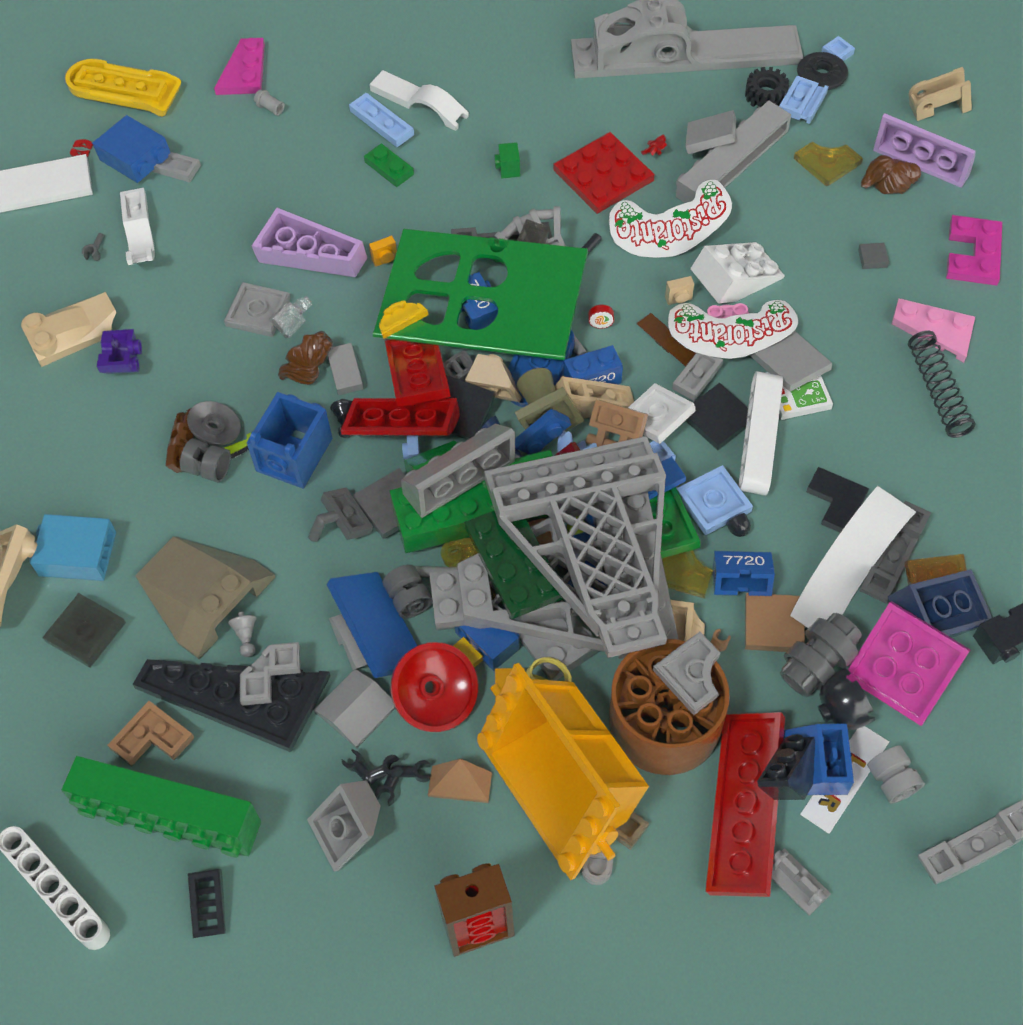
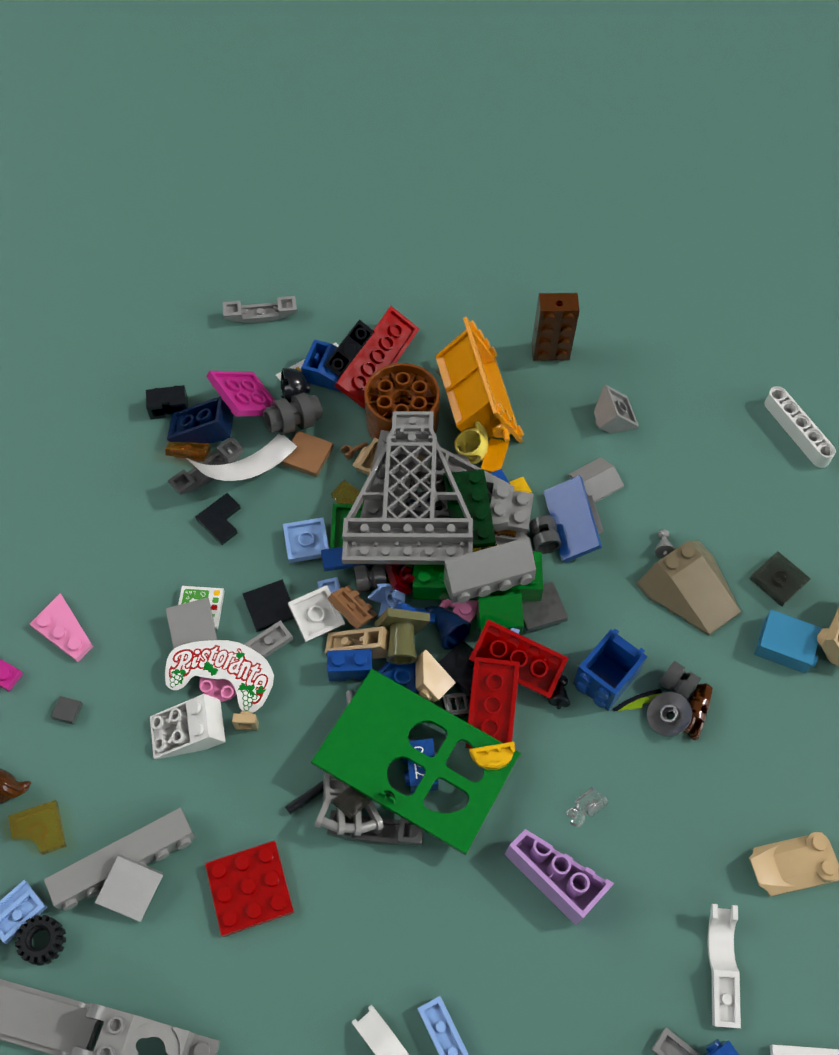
camera: 165 degrees left, 0 degrees up
(93, 248) = (769, 958): dark grey hand -> none
(119, 352) = (747, 809): dark purple cylinder -> none
(149, 728) = (733, 500): medium nougat plate -> none
(162, 807) = (730, 442): green brick -> none
(193, 880) = (705, 402): black slope -> none
(216, 696) = (666, 500): black wing -> none
(254, 308) = (616, 831): light grey tile -> none
(275, 660) = (647, 512): light grey tile -> none
(306, 358) = (581, 754): reddish brown hair -> none
(345, 369) = (550, 741): light grey tile -> none
(345, 512) = (577, 606): dark grey plate -> none
(376, 773) = (596, 433): black arm -> none
(383, 251) = (488, 851): light orange plate -> none
(389, 165) = (454, 973): green plate -> none
(410, 771) = (578, 435): black arm -> none
(453, 687) = (543, 465): red dish -> none
(460, 781) = (540, 420): medium nougat slope -> none
(508, 160) = (336, 928): green plate -> none
(601, 316) = (321, 718): tile -> none
(655, 146) = (186, 900): red plant -> none
(663, 338) = (278, 694): reddish brown piece -> none
(673, 230) = (218, 786): sticker -> none
(688, 672) = (385, 397): light grey tile -> none
(739, 525) = (296, 516): black hinge -> none
(743, 573) = (318, 483): blue brick -> none
(760, 433) = (247, 574): white beam -> none
(798, 882) = (364, 314): light grey hinge -> none
(897, 777) = (284, 348): light grey wheel -> none
(929, 344) = (103, 542): black piece -> none

